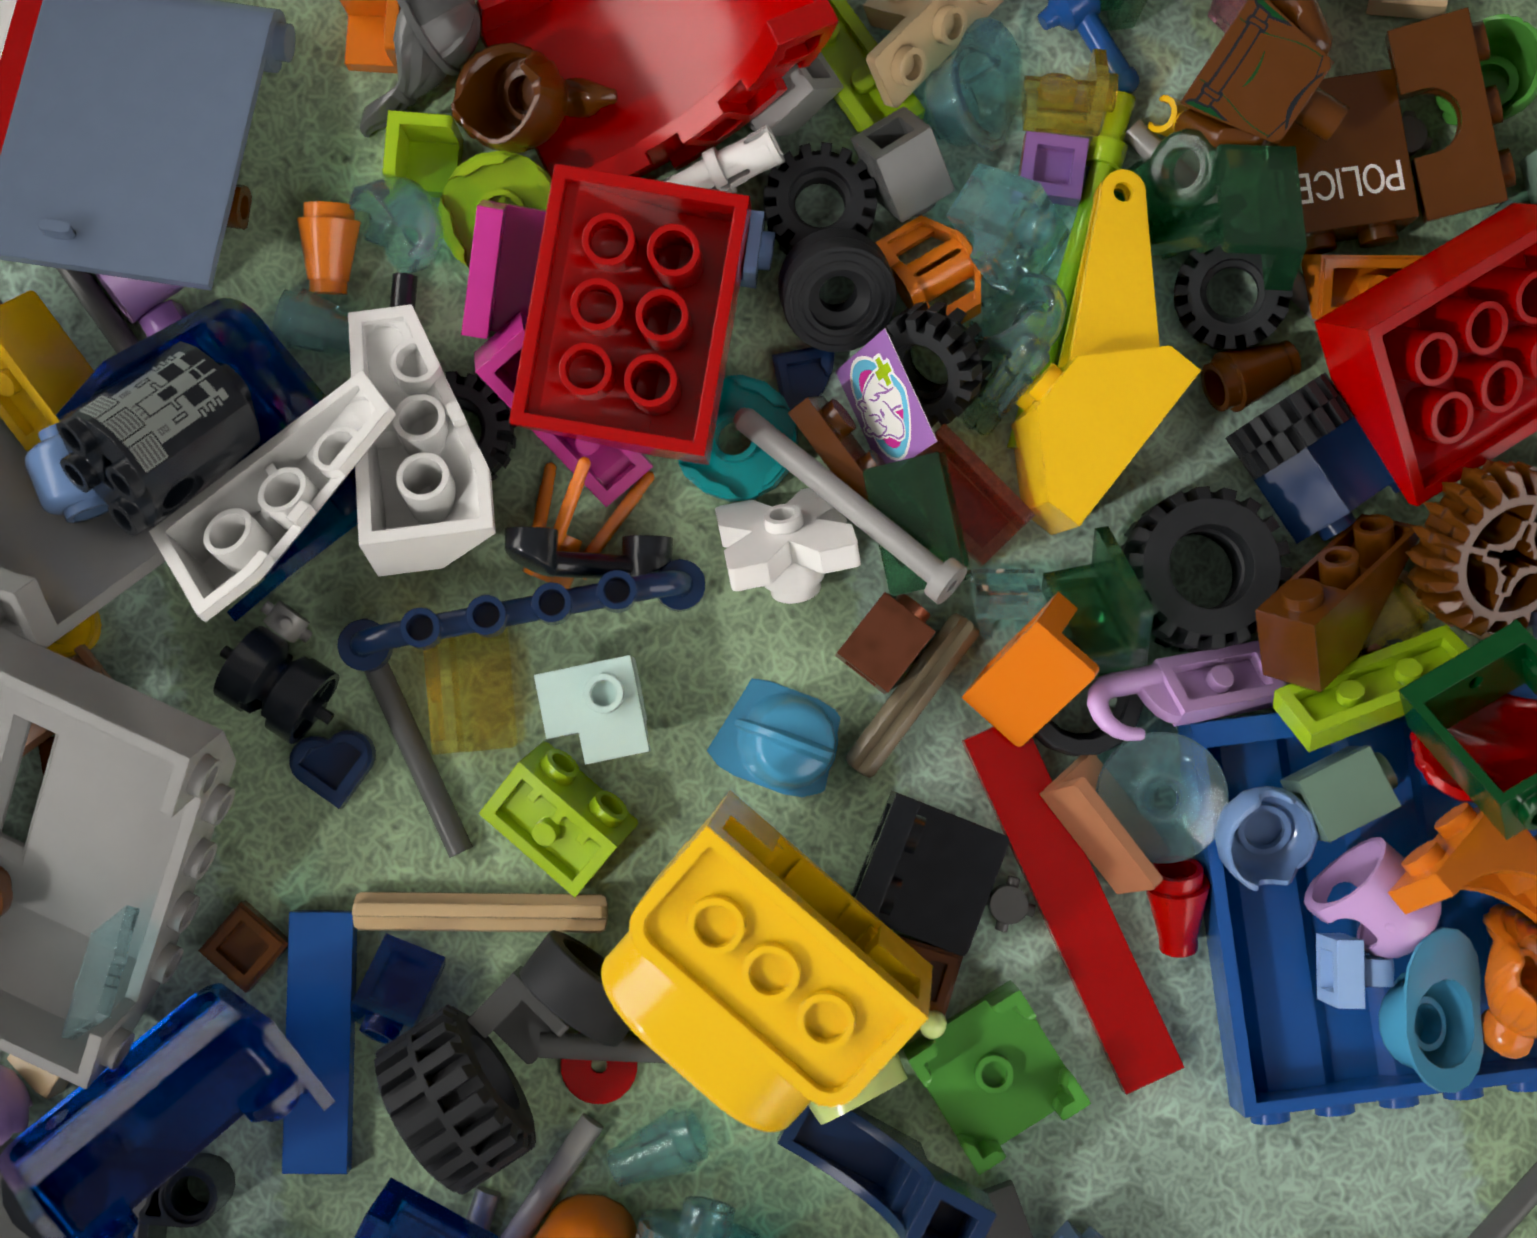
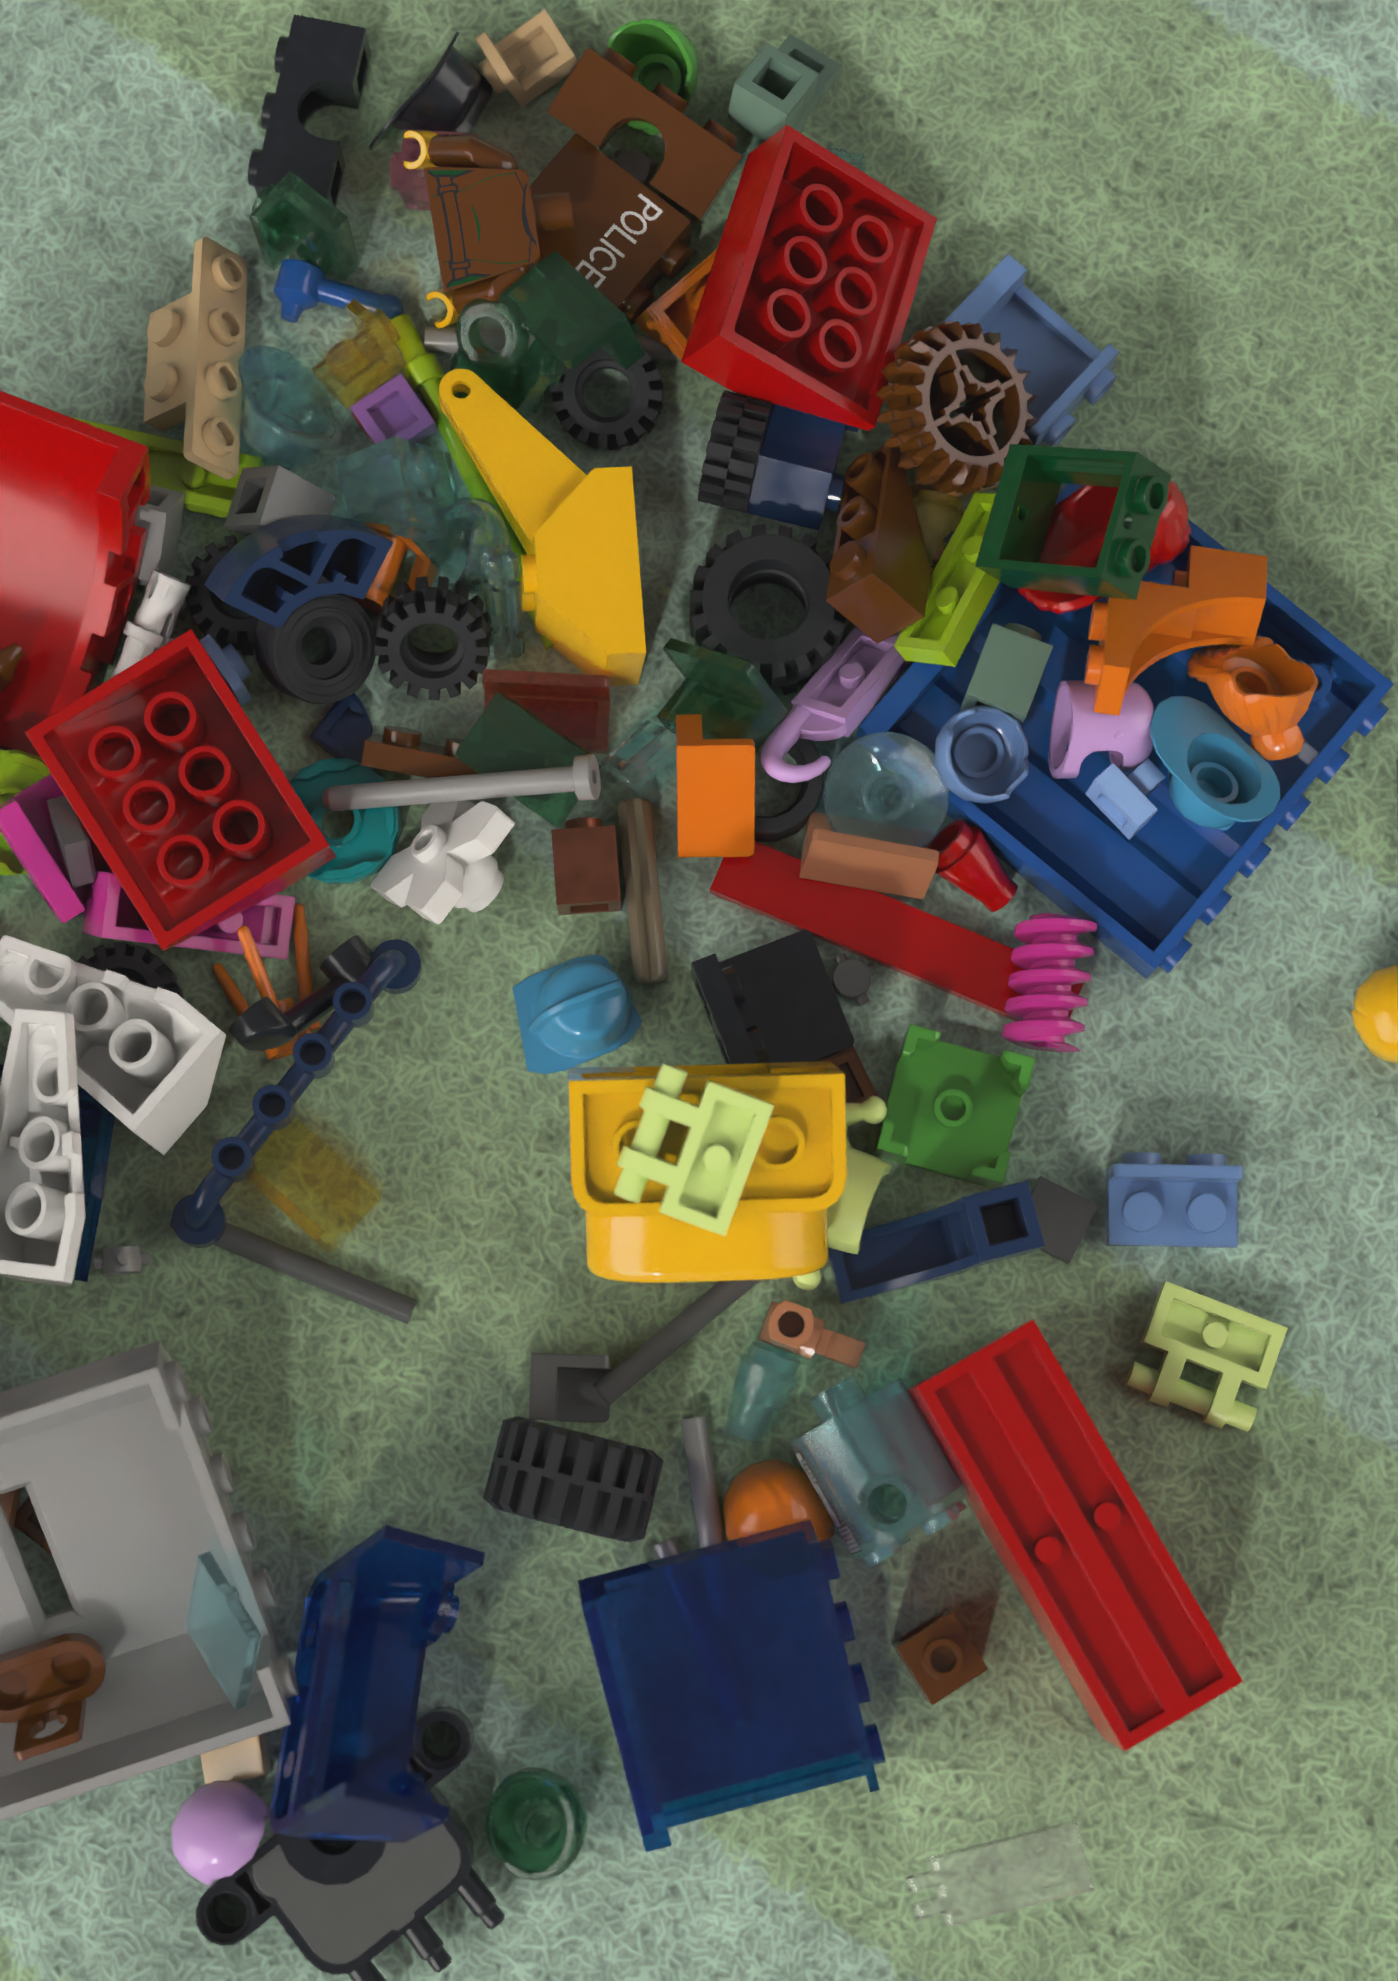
camera: 45 degrees left, 5 degrees down
(245, 946) = (311, 1530): reddish brown tile -> none
(265, 678) = (159, 1309): black wheel -> none
(323, 1034) = (391, 1495): blue tile -> none
(333, 765) = (255, 1335): dark blue tile -> none
(396, 989) = (455, 1453): clear blue bracket -> none
(480, 912) = (466, 1341): tan axle -> none
(518, 280) = (71, 842): none -> dark grey tile
(559, 817) = (461, 1216): lime bracket -> none
(569, 983) = (594, 1316): black tyre -> none
(598, 703) = (413, 1103): light aqua brick -> none
(598, 1086) = (677, 1387): red wheel -> none
(727, 1143) = (802, 1334): none -> nougat bar
(764, 993) = (714, 1155): none -> yellowish green plate
(876, 215) = (296, 562): none -> dark blue brick
(885, 401) = (424, 692): sticker -> none
(1155, 1051) = (1047, 982): none -> dark pink piece
(1247, 374) = (673, 441): reddish brown cone -> none

